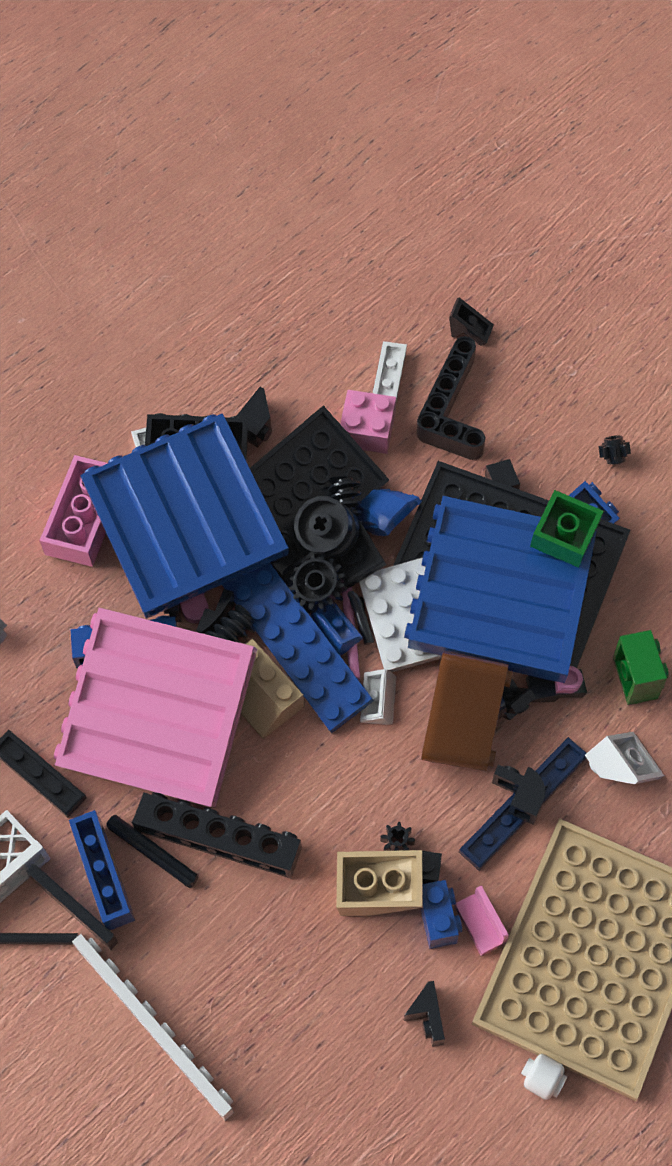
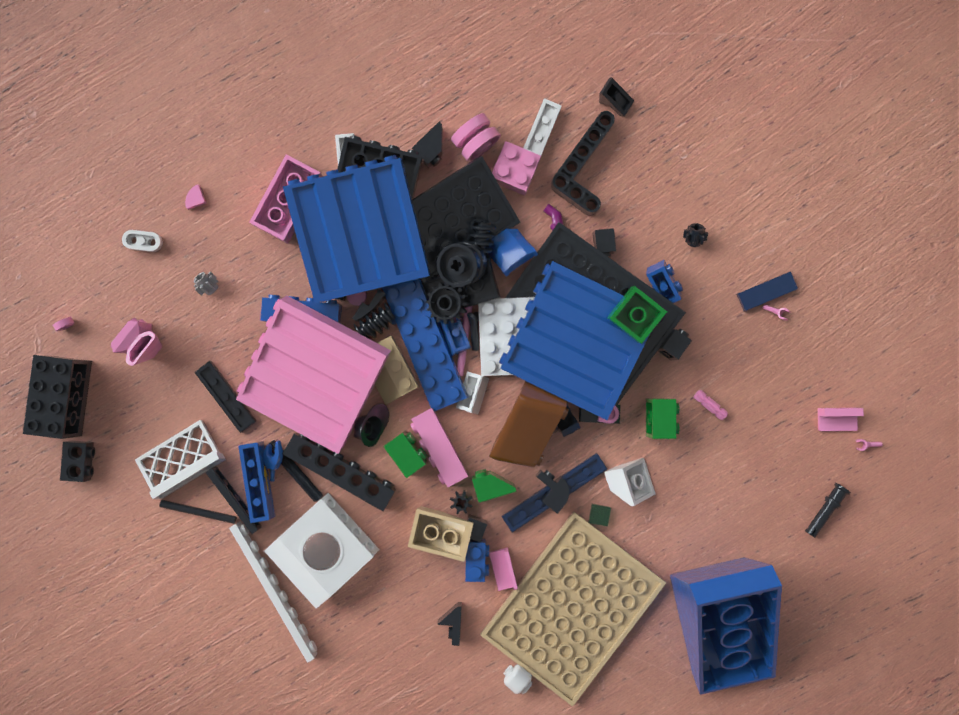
camera: 10 degrees right, 25 degrees up
(120, 838) = (273, 461): none -> blue hand
(209, 948) = (322, 550): none -> white panel
(249, 762) = (371, 426): none -> black piece
(305, 784) = (406, 453): none -> green brick
(308, 391) = (475, 137): none -> bright pink wheel
(350, 773) = (439, 447): none -> bright pink brick
(426, 463) = (554, 214): none -> magenta arm
(435, 801) = (491, 485): none -> green slope
(596, 818) = (599, 514): none -> clear green tile
(627, 575) = (675, 344): none -> black brick

